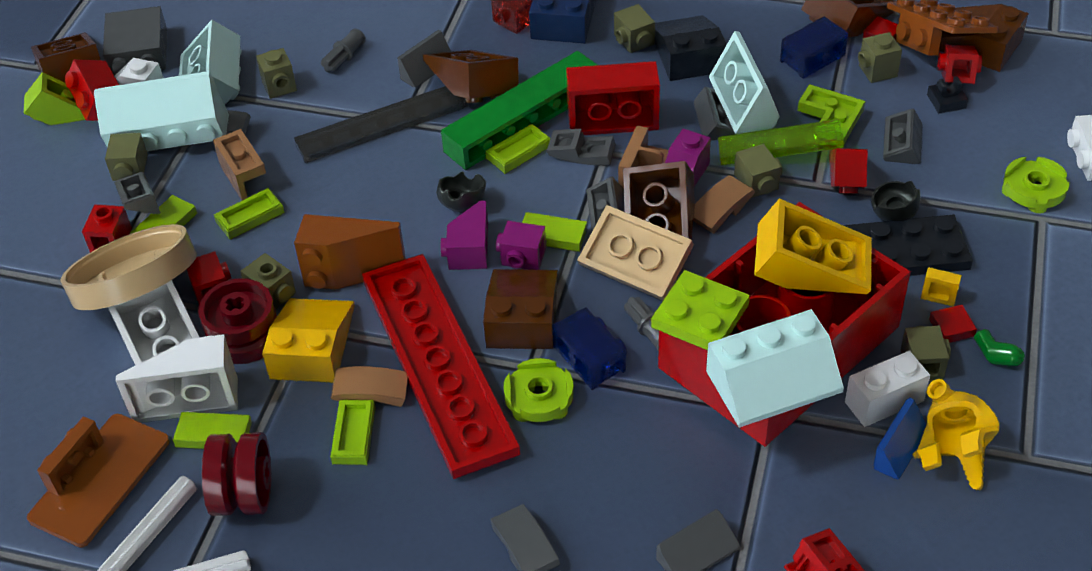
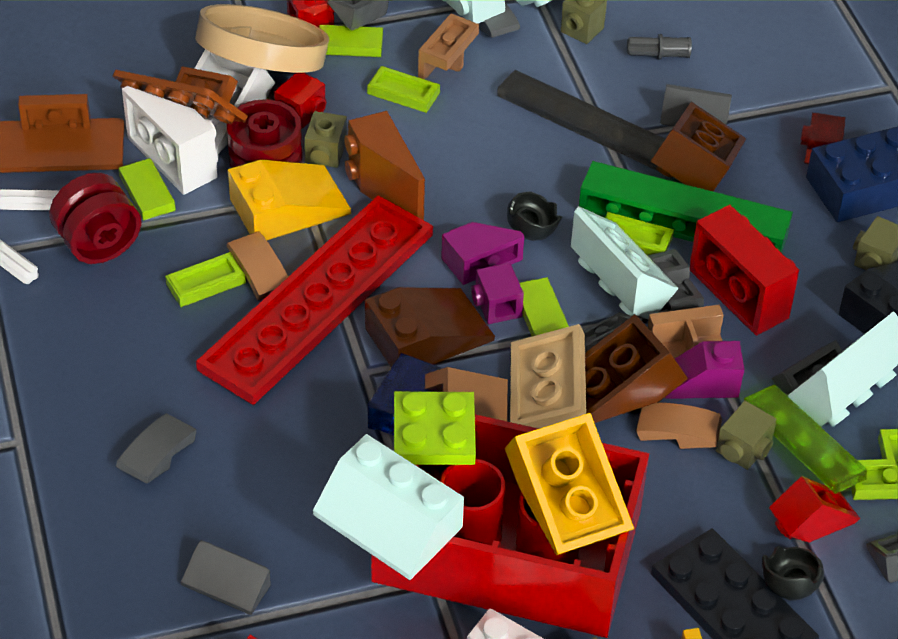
camera: 55 degrees right, 0 degrees up
(156, 333) = (195, 88): none -> dark orange bracket
(543, 406) = (332, 401): lime plate -> none
(557, 162) = (620, 264): none -> light aqua slope
(624, 304) = (489, 391): none -> medium nougat panel

